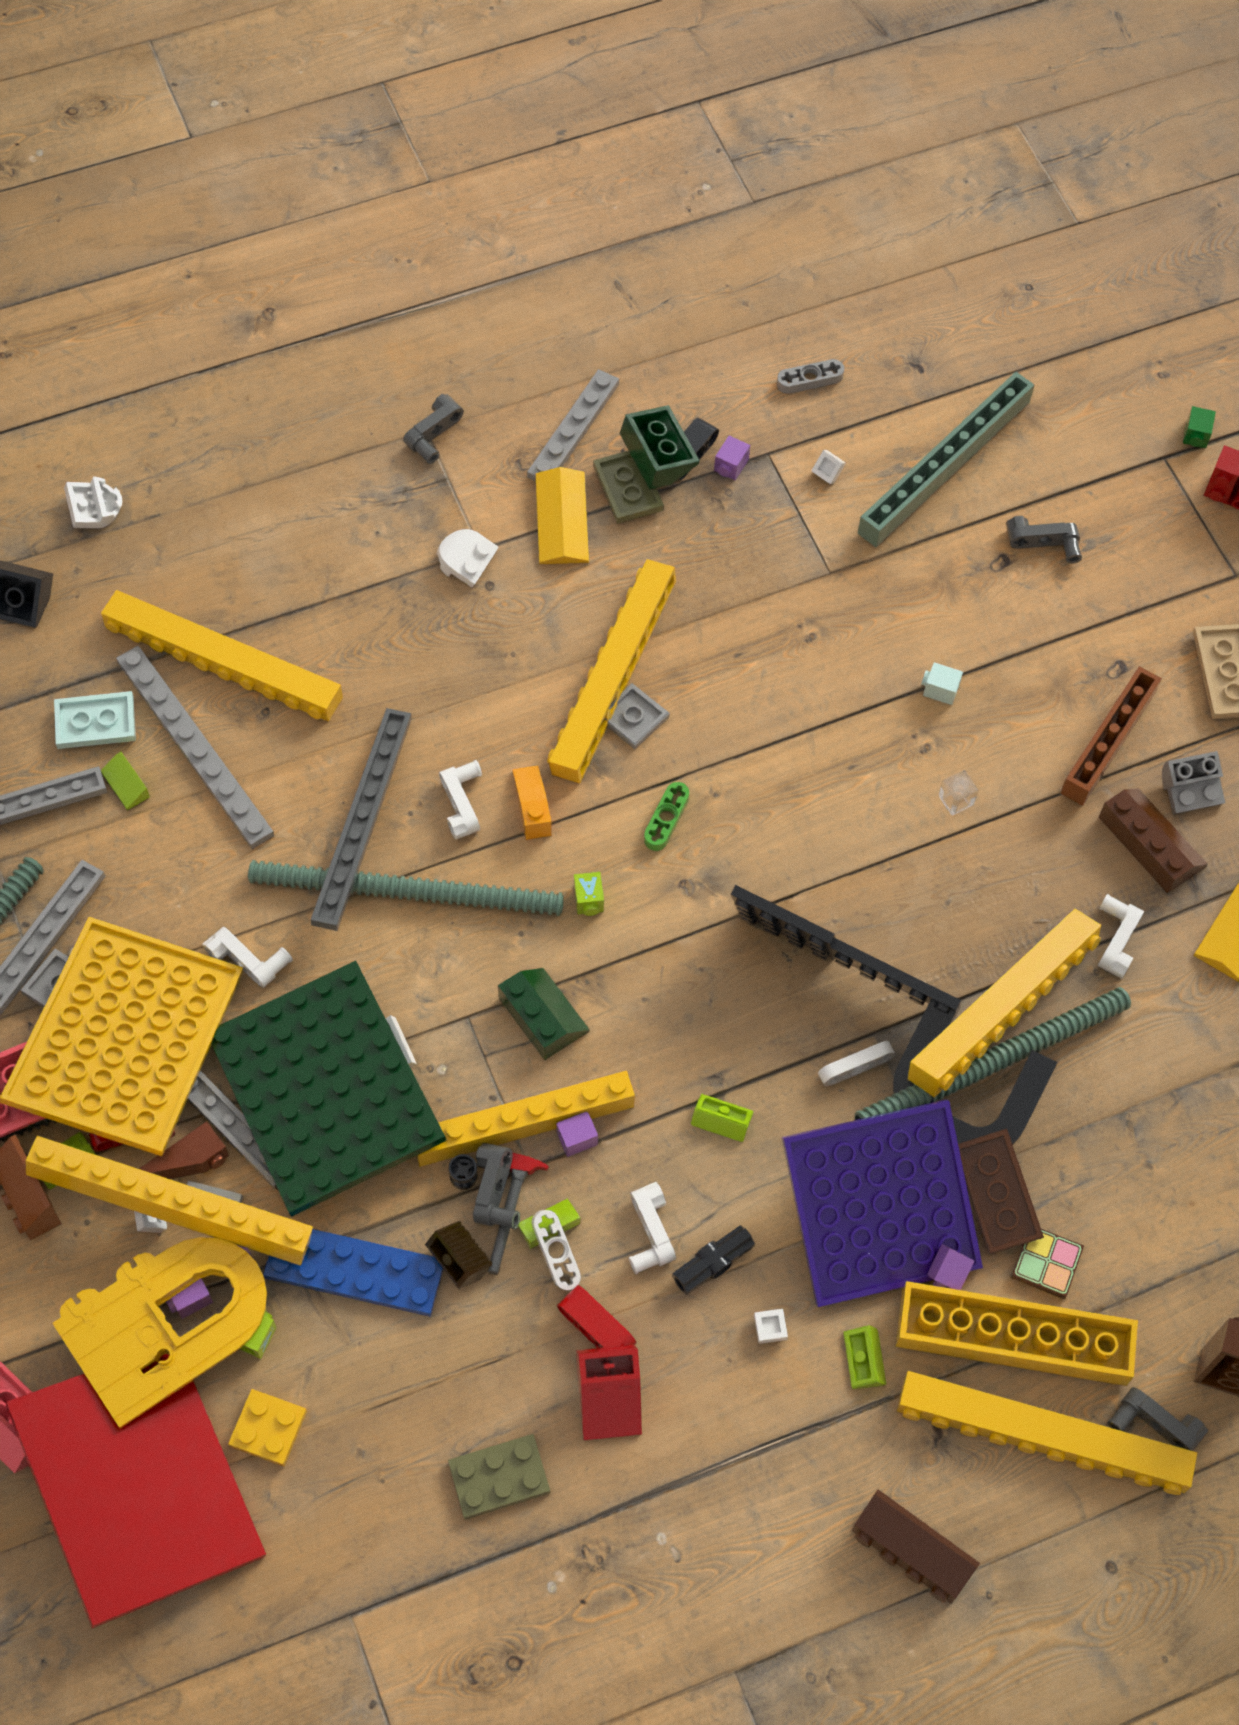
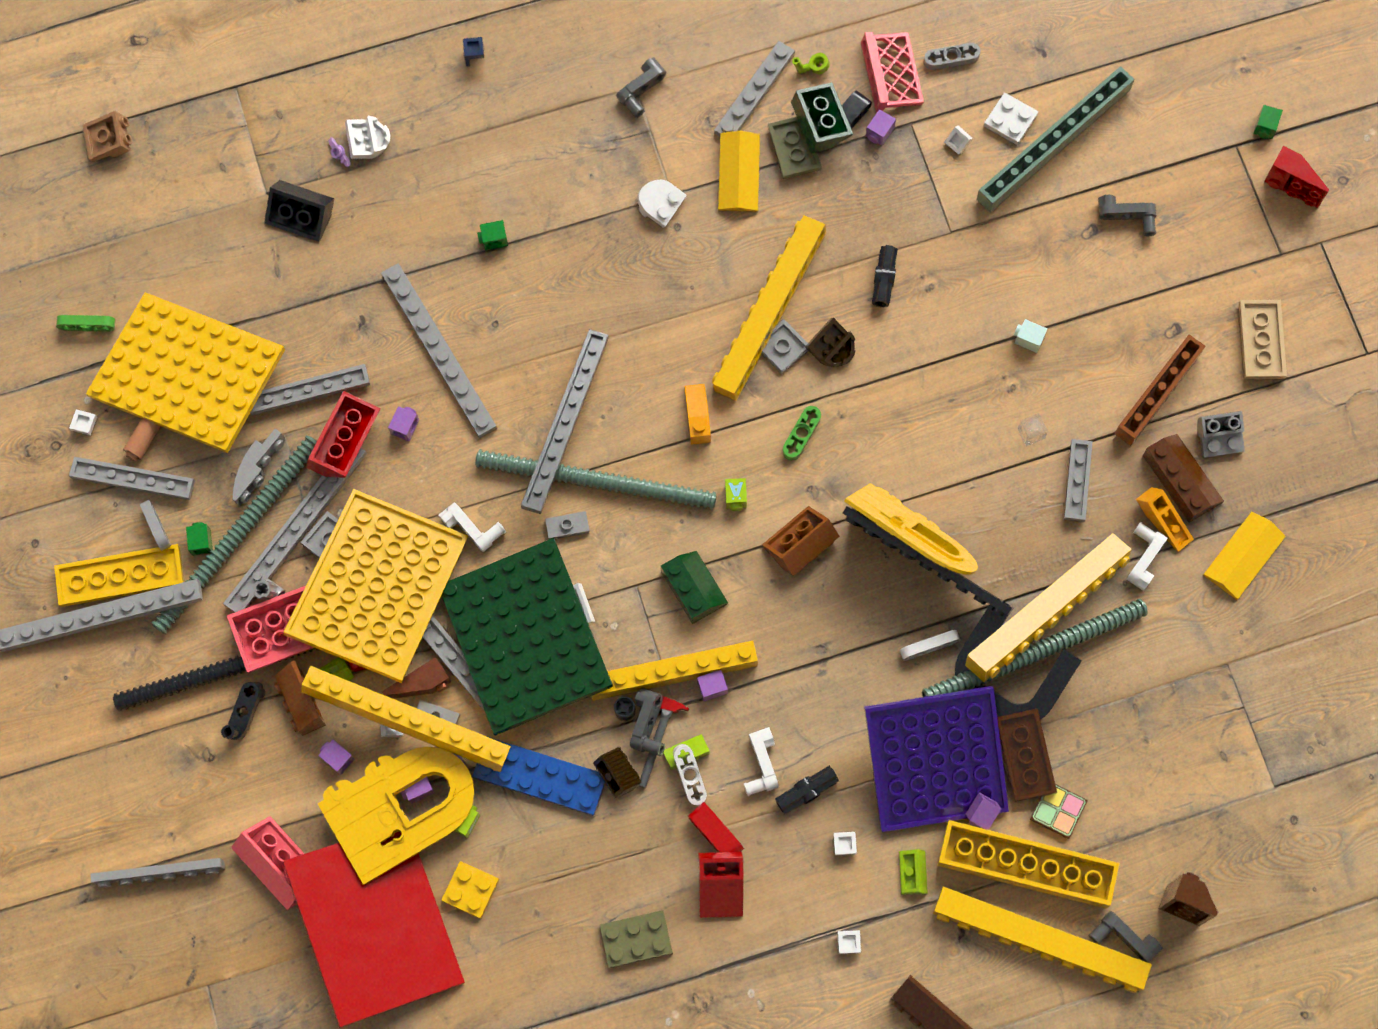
camera: 10 degrees right, 10 degrees up
(57, 522) = (338, 152): none -> lavender piece
(71, 853) = (342, 436): none -> red slope
(76, 1262) = (336, 756): none -> medium lavender brick
(94, 720) = (362, 324): light aqua plate -> none
(125, 781) = (384, 377): lime slope -> none
(152, 835) = (404, 423): none -> medium lavender brick
(222, 394) = (473, 49): none -> dark blue panel
(222, 656) = (463, 276): yellow brick -> none
(257, 605) = (492, 235): none -> green brick
(373, 947) = (567, 525): none -> light grey plate
(465, 820) = (644, 428): white beam -> none
(644, 392) = (814, 61): none -> lime plate
(678, 945) = (801, 540): none -> dark orange slope
(696, 709) = (832, 345): none -> dark brown slope
(719, 395) = (876, 75): none -> coral fence
(721, 1118) = (823, 679): lime slope -> none
(753, 625) = (884, 276): none -> black piece
(788, 1457) = (849, 942): none -> white plate
(821, 914) = (912, 529): none -> yellow door
(889, 441) = (1010, 118): none -> white plate
(1022, 850) = (1078, 480): none -> light grey plate
(1136, 886) = (1165, 517): none -> light orange slope

